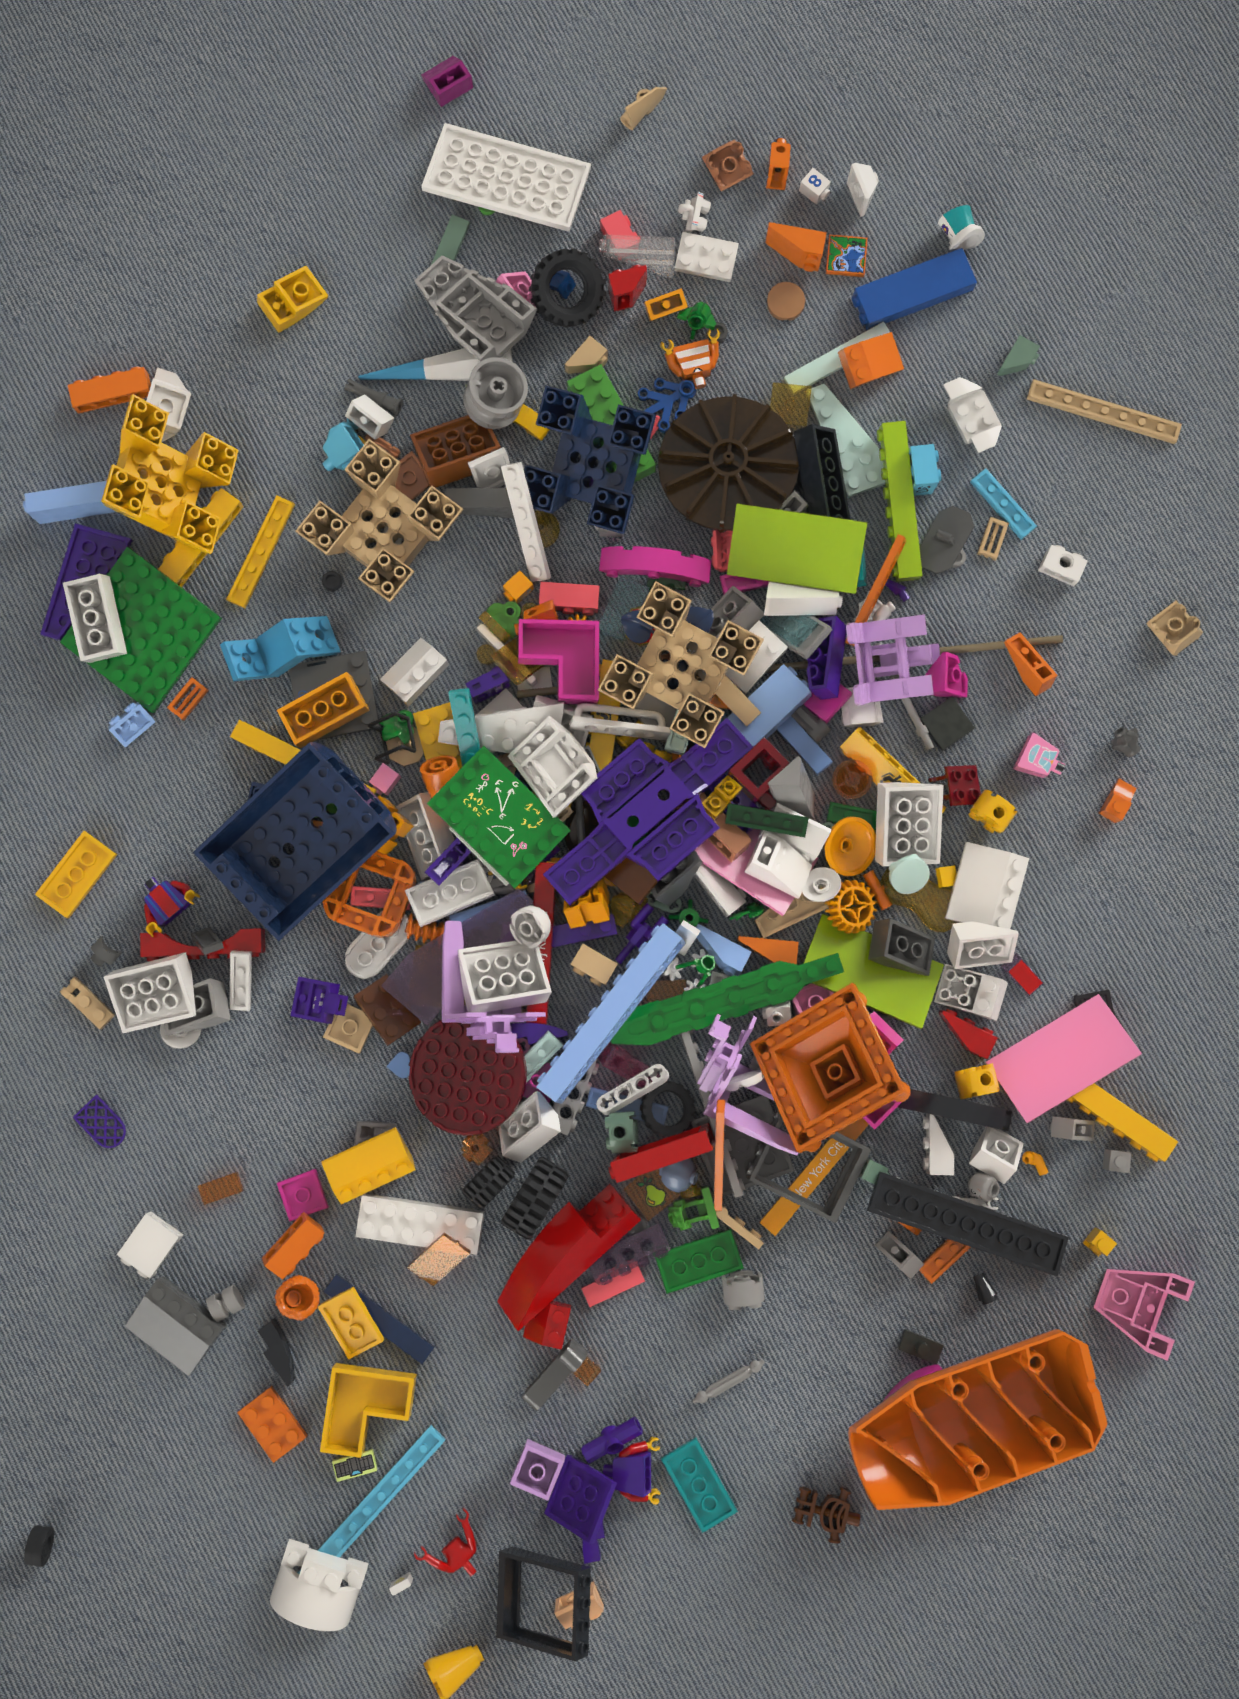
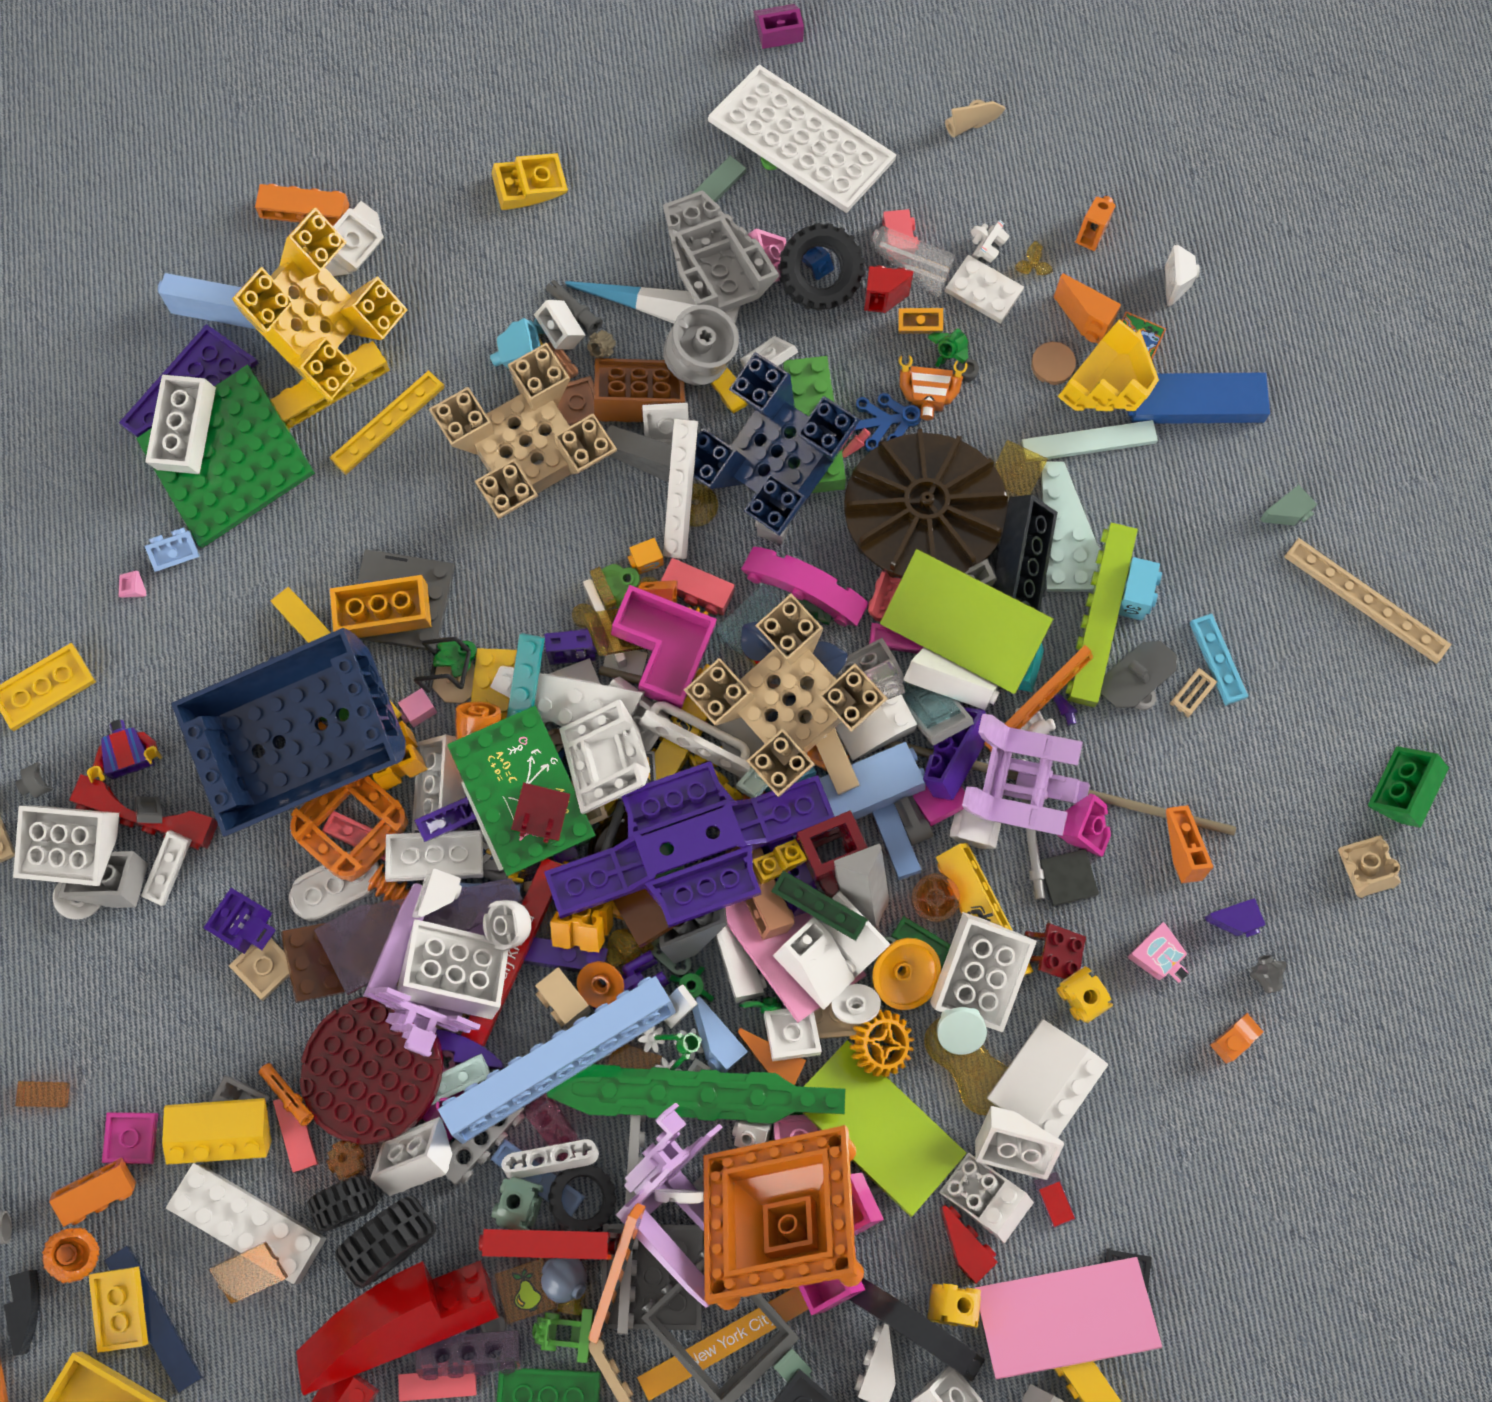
camera: 20 degrees right, 10 degrees down
(110, 765) = (131, 585): none -> bright pink slope
(182, 693) = (247, 553): orange tile -> none
(280, 648) = (362, 526): dark azure bracket -> none
(331, 581) = (449, 478): black tile -> none
(398, 1111) = (286, 1094): none -> orange pin
(400, 1065) = (301, 1030): medium blue tile -> none
(410, 421) = (601, 344): none -> dark tan gear
(415, 671) = (498, 605): white slope -> none
(428, 1142) = (296, 1139): none -> coral tile
(466, 922) = (437, 891): none -> white slope
(522, 829) = (540, 812): none -> dark red plate
(553, 375) = (774, 350): none -> white plate
(587, 357) = (817, 343): tan slope -> none
(619, 951) = (592, 990): none -> orange dish
(728, 164) = (1042, 205): nougat slope -> none
(736, 210) = (1034, 253): none -> clear yellow plant
(751, 620) = (886, 679): none -> clear slope
(779, 929) = (789, 1038): none -> white plate
(815, 186) = (1128, 257): white brick -> none
(840, 294) = (1114, 374): none -> yellow panel
(870, 360) = (1123, 454): orange slope -> none
(877, 889) = (920, 1035): orange pin -> none
(901, 947) = (923, 1112): dark grey slope -> none
(946, 876) = (1005, 1050): yellow tile -> none
(961, 229) = (1271, 352): hat -> none
(973, 414) = (1217, 549): white piece -> none
(1051, 565) = (1265, 762): white brick -> none
(1089, 707) = (1239, 918): none -> dark purple slope
(1185, 552) = (1409, 786): none -> green slope

